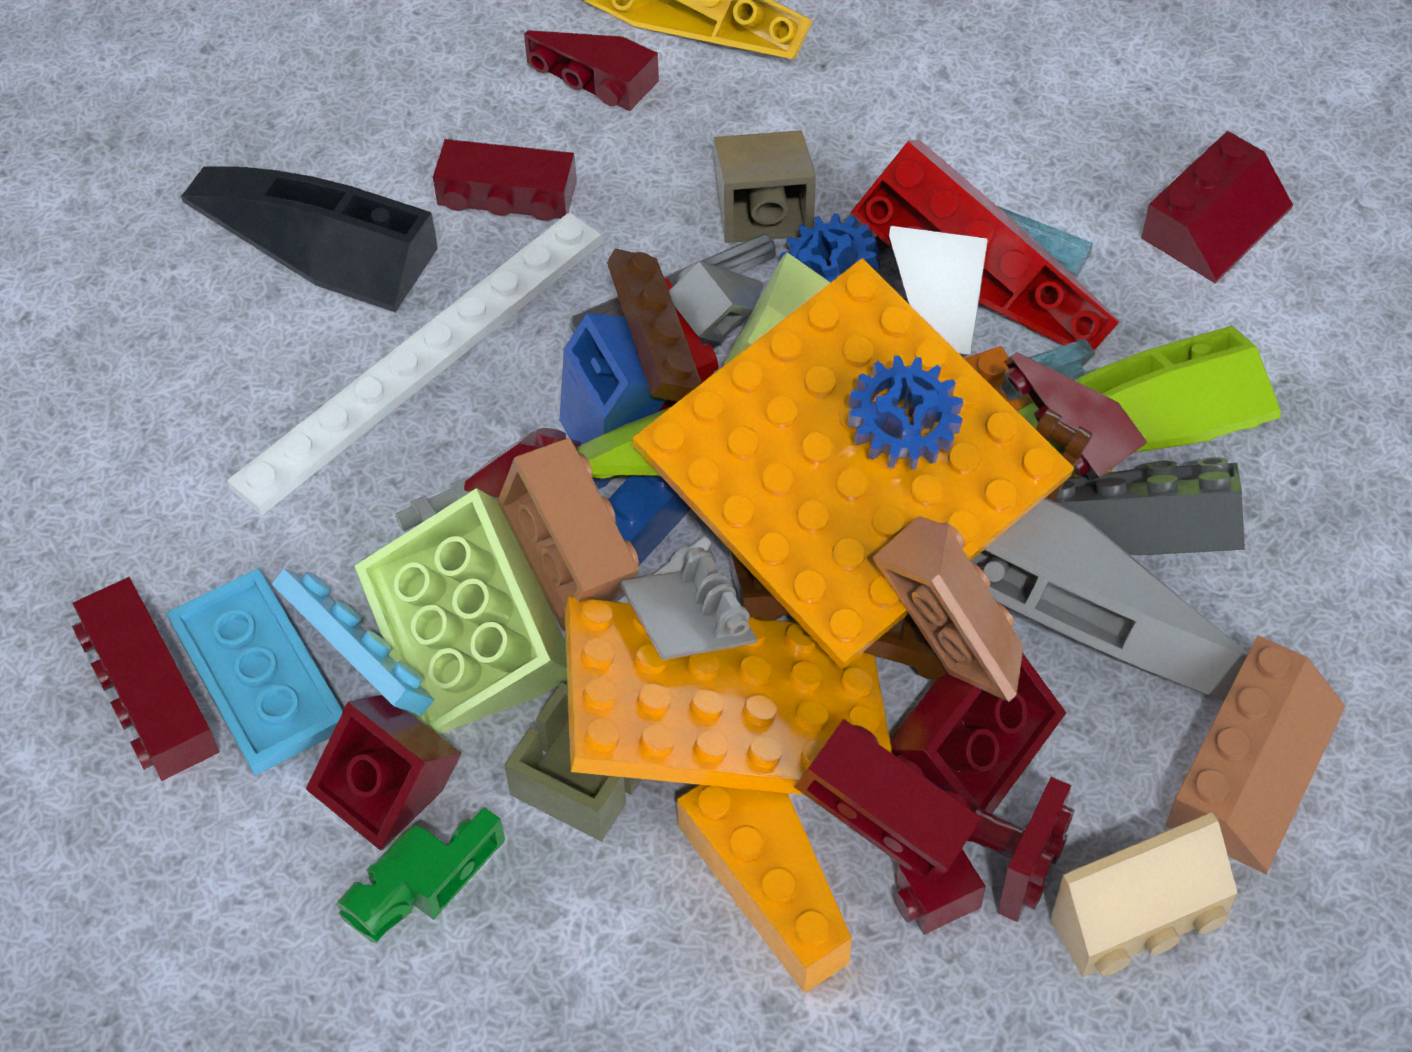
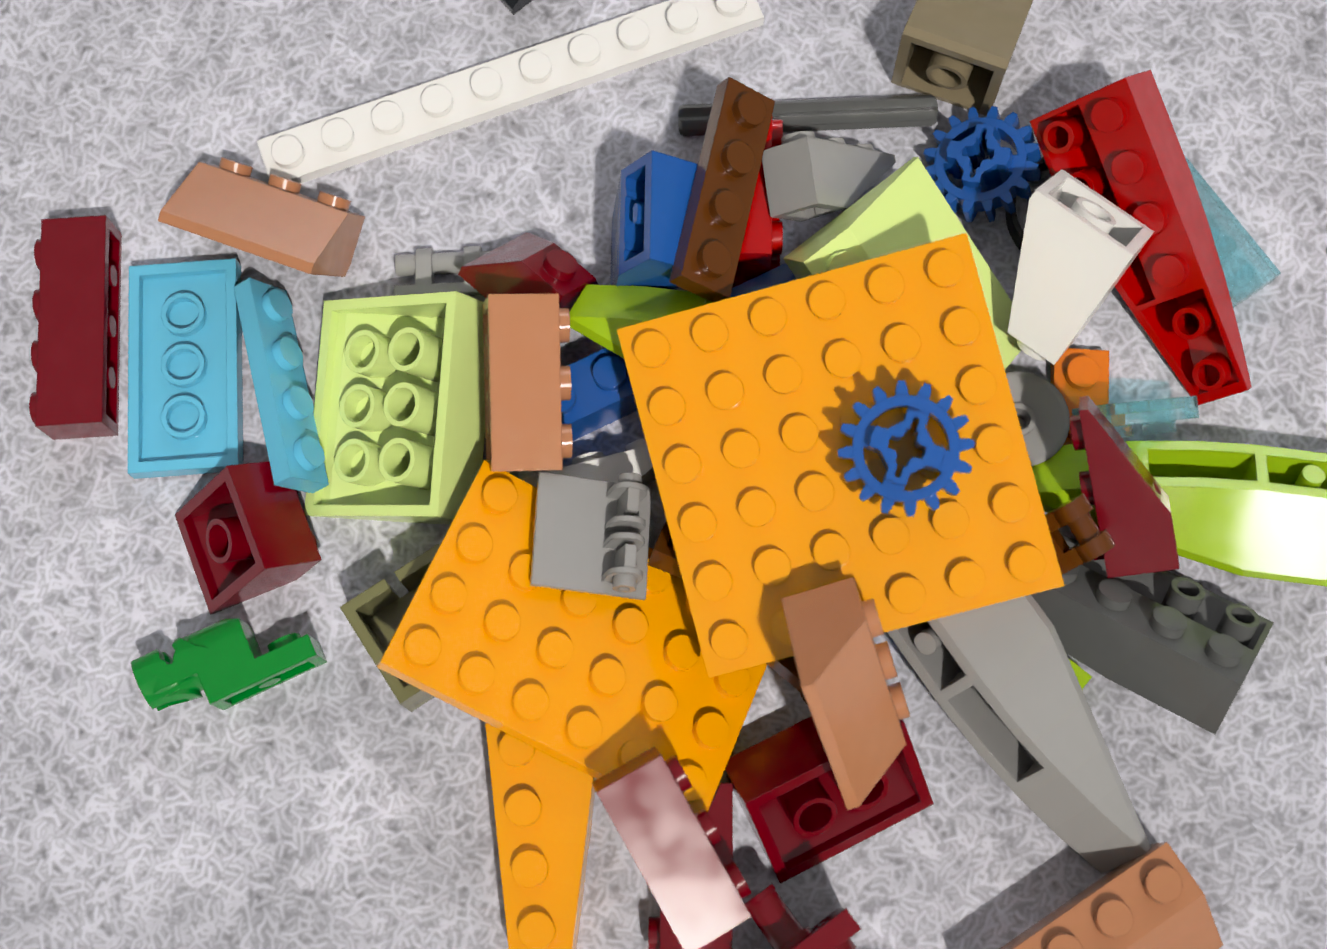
camera: 30 degrees right, 20 degrees up
(274, 523) = (266, 218): none -> nougat slope

